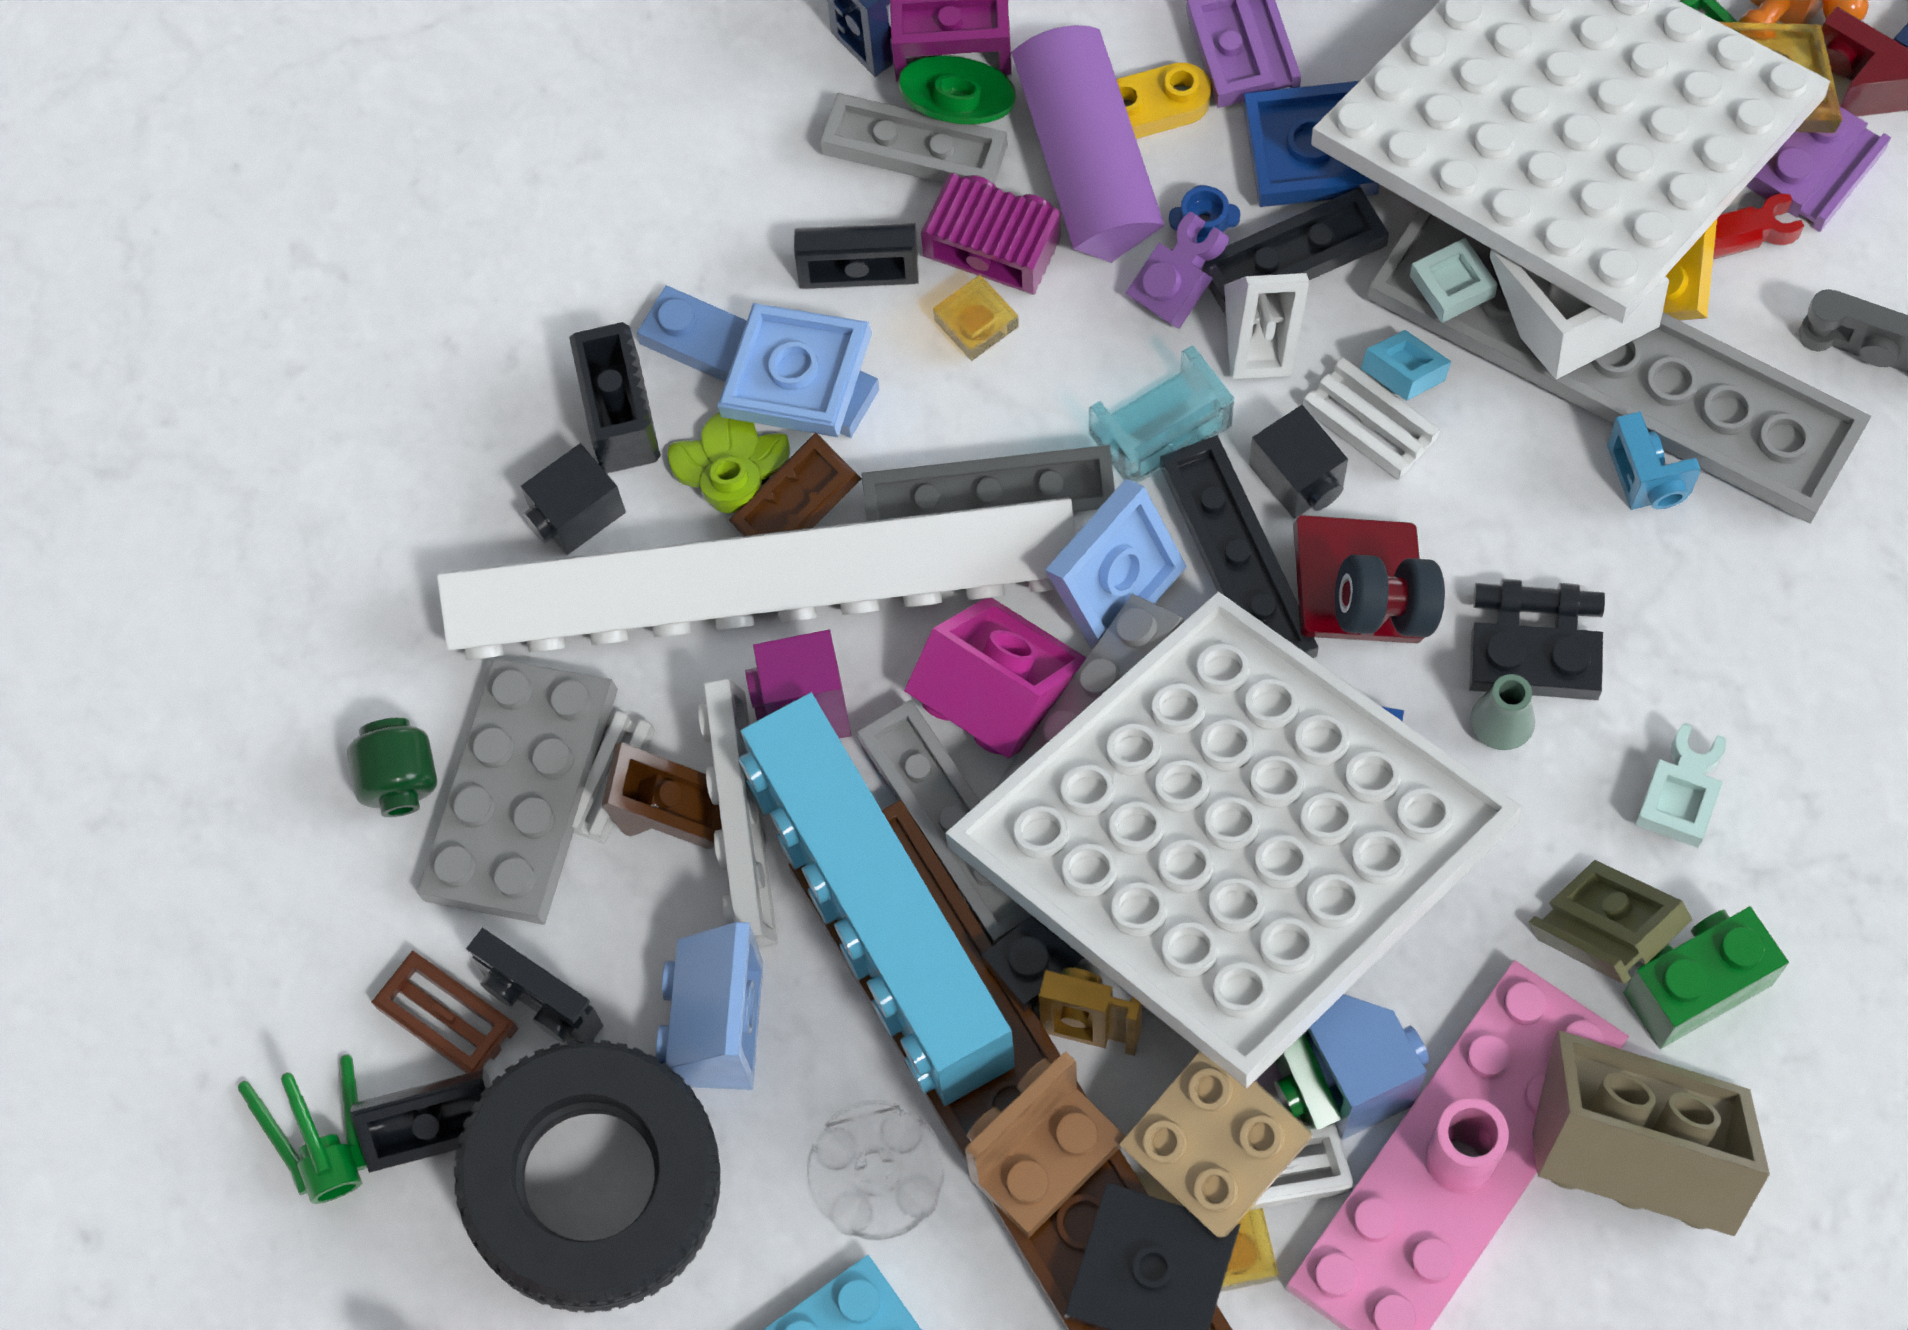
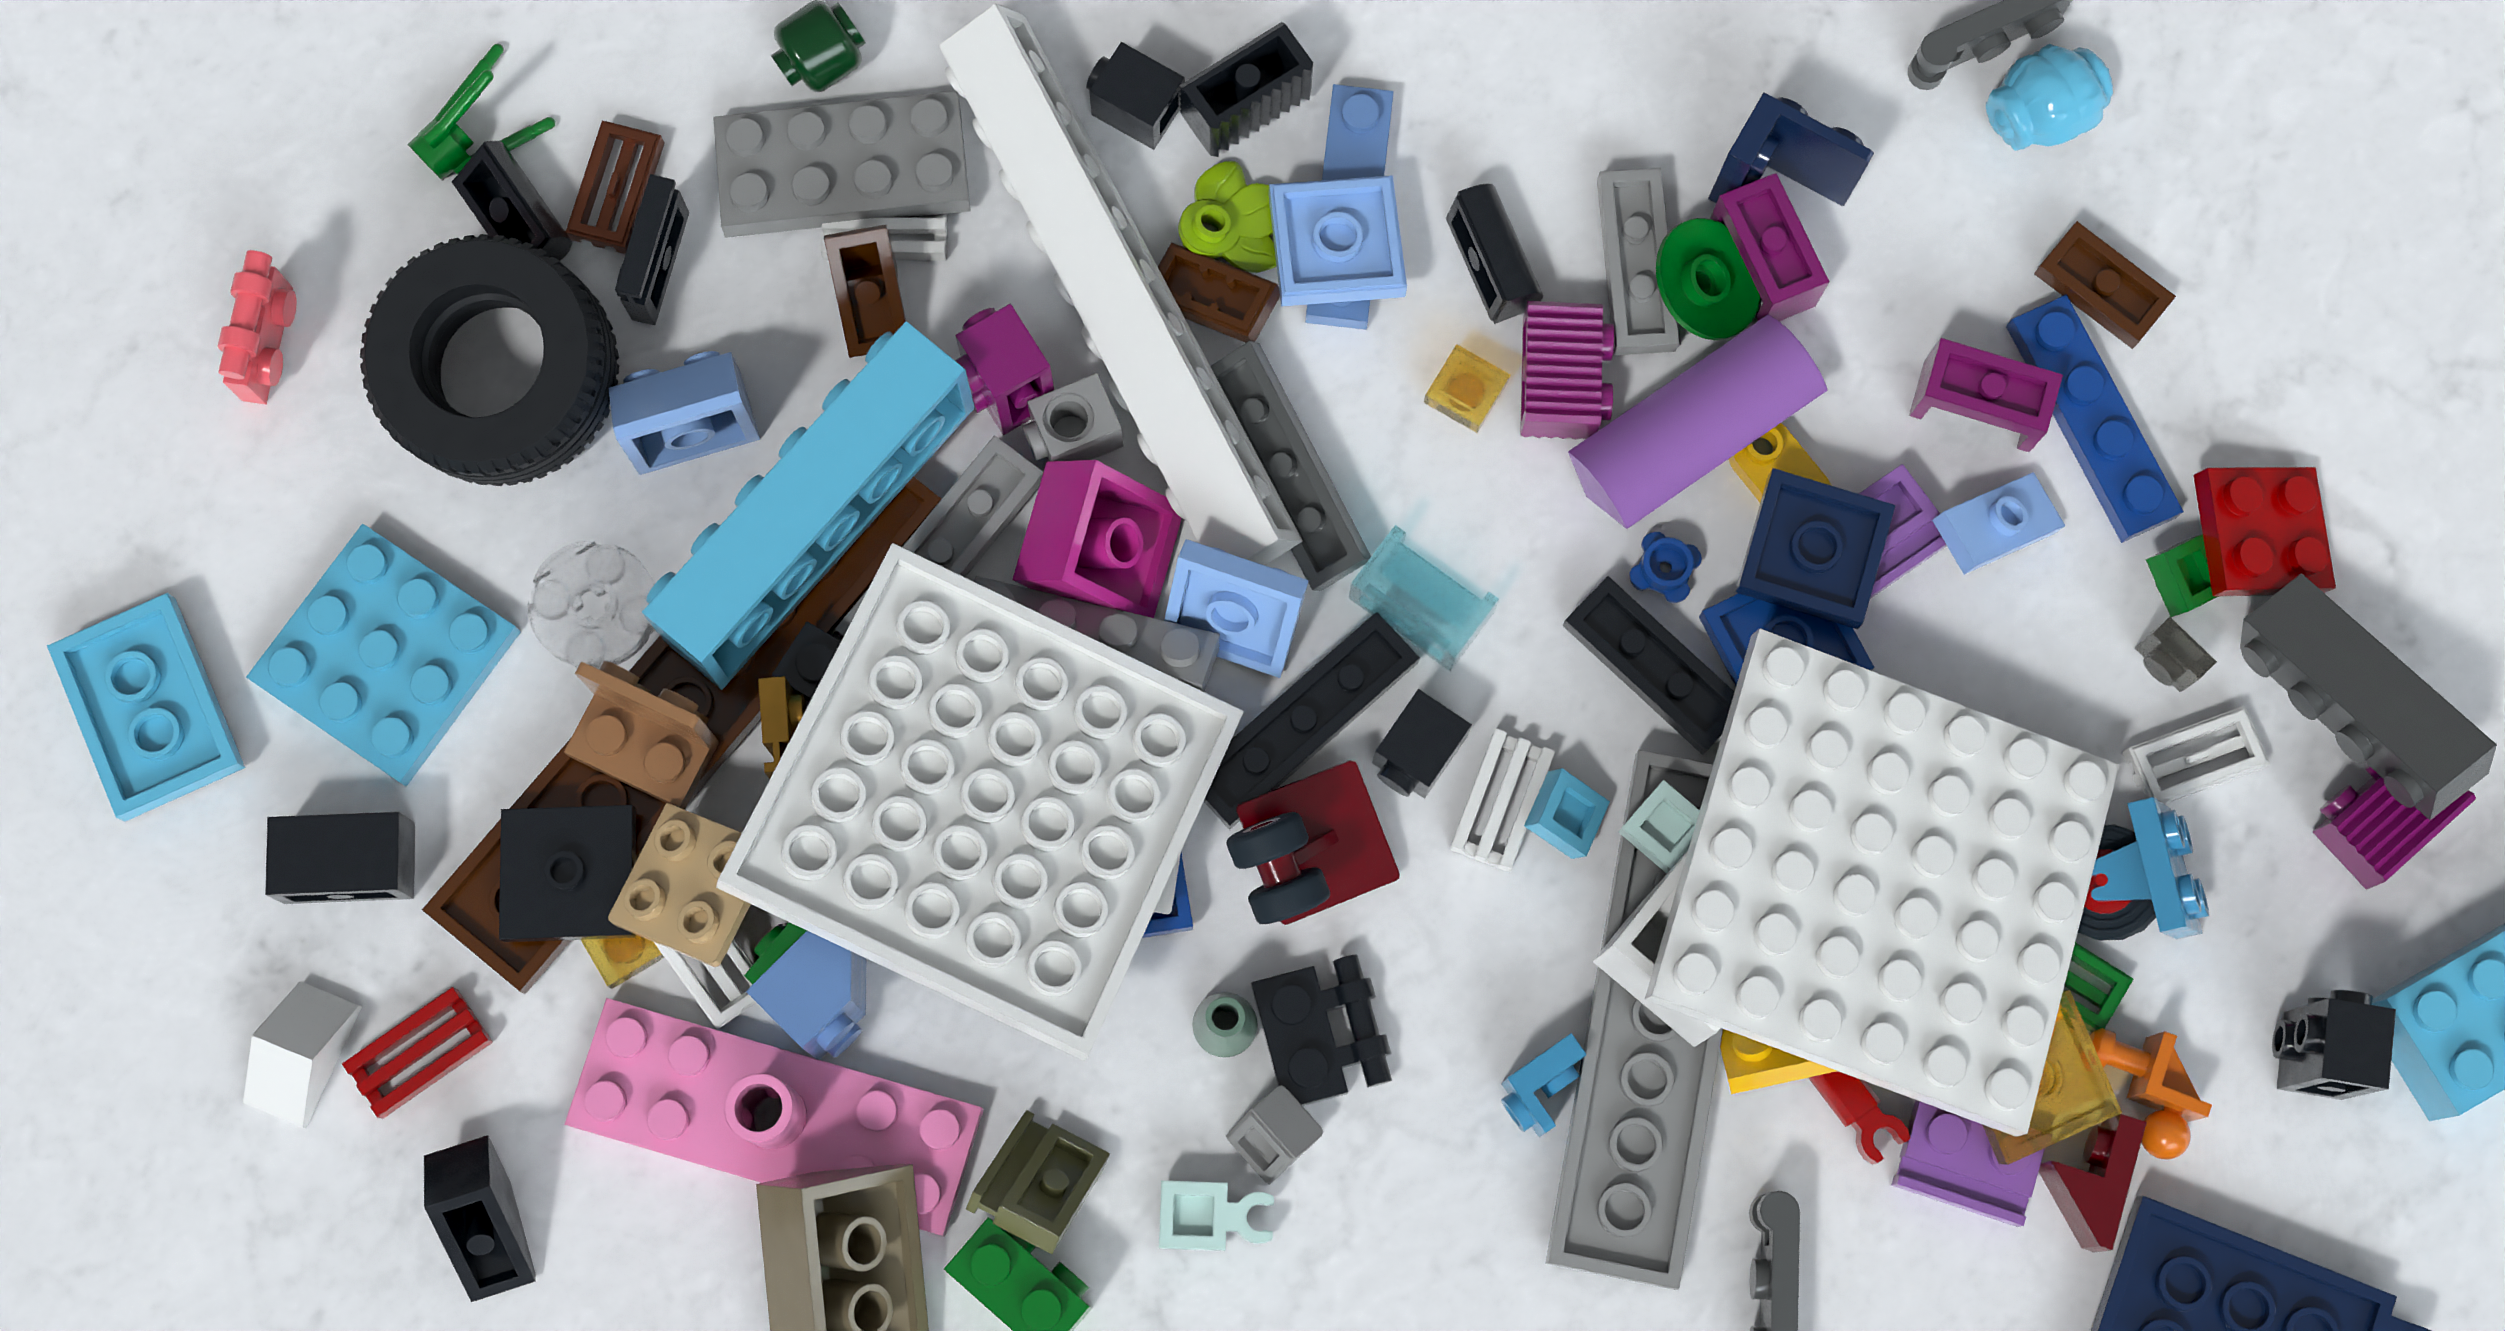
camera: 60 degrees right, 10 degrees up
(741, 839) = (799, 399): white plate -> none
(867, 635) = (1080, 399): none -> light grey brick
(1172, 278) = (1577, 556): medium lavender plate -> none
(1242, 82) = (1815, 548): none -> dark blue plate
(1264, 324) = (1554, 659): white slope -> none
(1624, 708) = (1274, 1134): none -> light grey slope

